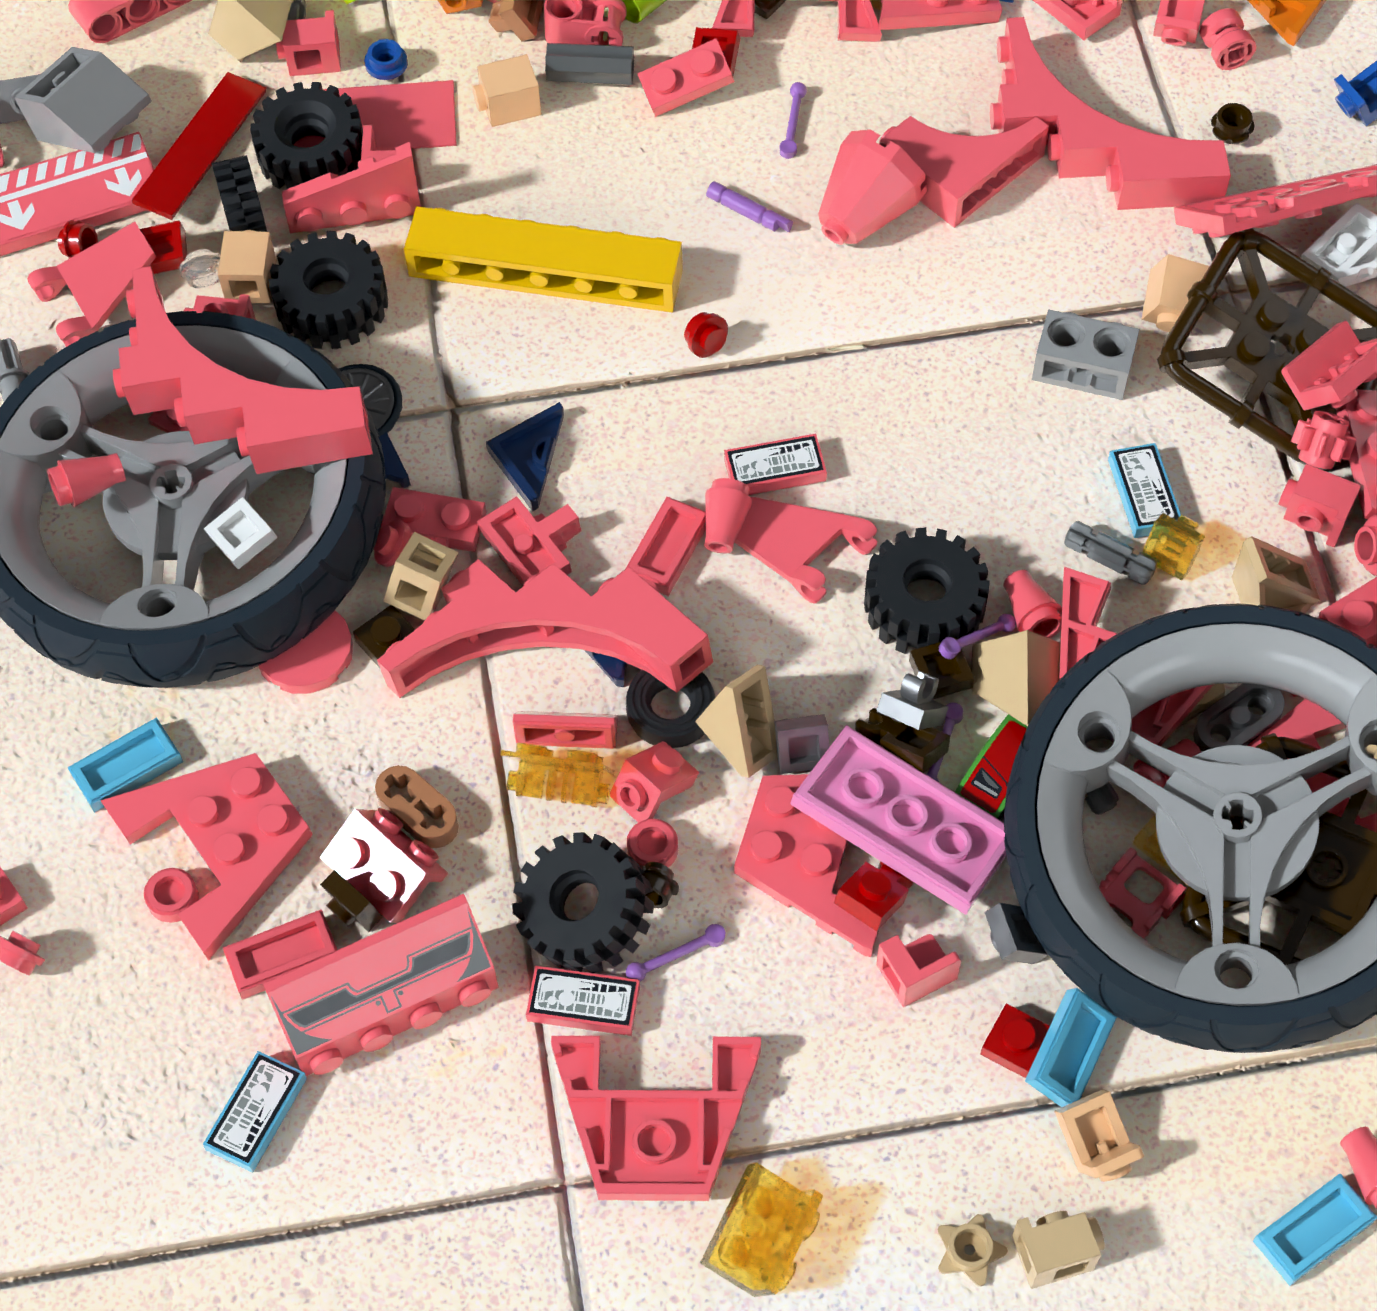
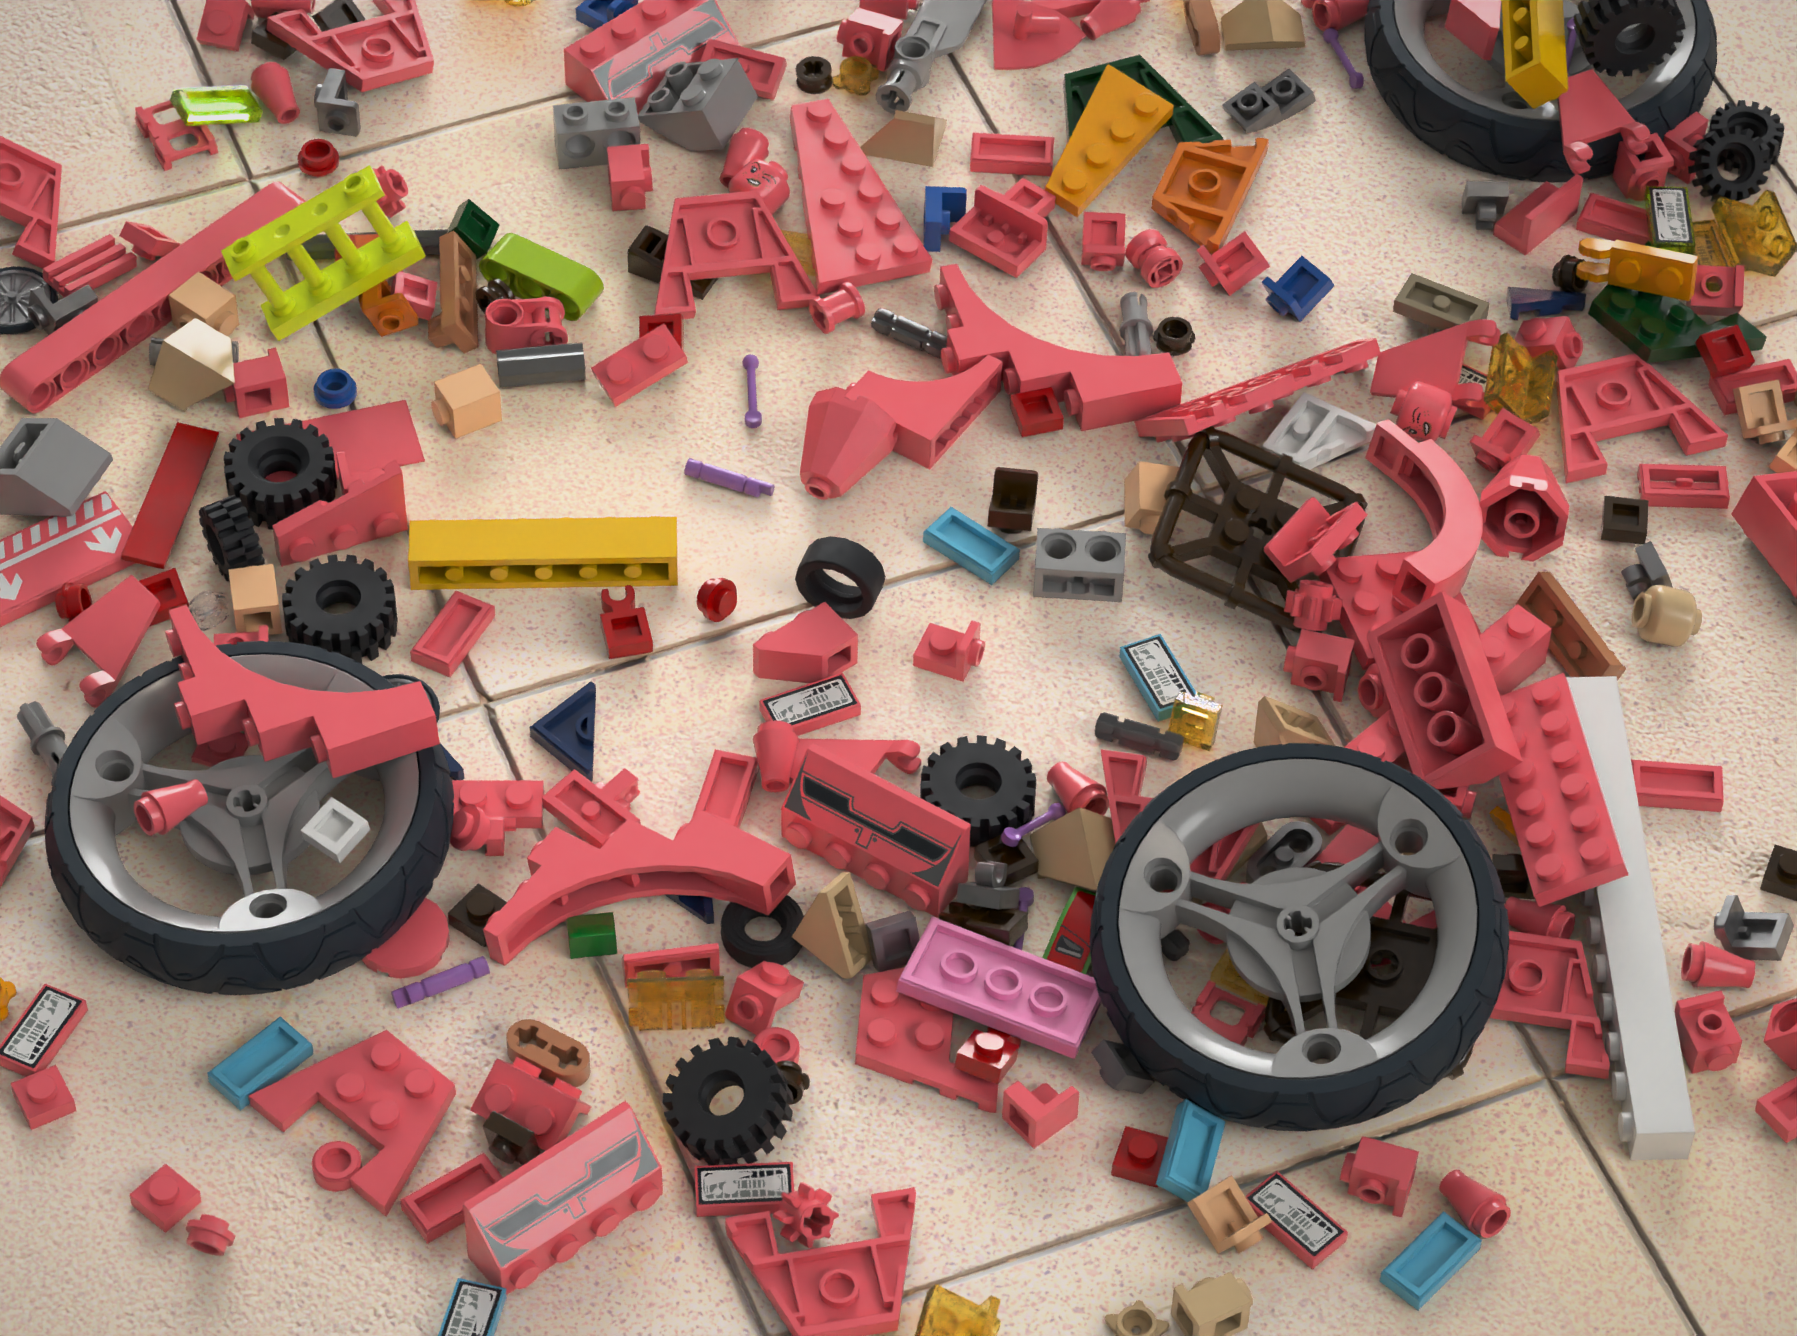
camera: 15 degrees left, 10 degrees down
(328, 706) = (440, 982): none -> medium lavender wheel
(419, 576) = (503, 852): tan brick -> none
(436, 329) = (452, 633): none -> coral tile
(493, 679) = (592, 935): none -> green slope
(606, 348) = (624, 626): none -> red plate
(637, 1048) = (805, 1215): none -> coral gear
(713, 937) = (849, 1118): medium lavender hinge -> none
(784, 402) = (807, 648): none -> coral slope
(808, 619) = (876, 831): none -> coral slope
(846, 318) = (845, 558): none -> black tyre
(895, 46) = (837, 307): none -> coral bush
(932, 426) = (950, 651): none -> coral bracket
(963, 81) = (909, 332): none -> dark grey axle
(978, 315) = (971, 545): none -> medium azure tile
(1030, 274) = (1013, 500): none -> dark brown bracket
(1074, 183) = (1036, 412): none -> red plate
(1172, 1150) = (1296, 1220): none -> tile
(1195, 107) = (1136, 326): none -> light grey axle
(1277, 1115) = (1380, 1173): none -> coral brick
(1308, 56) = (1233, 263): none -> coral bracket

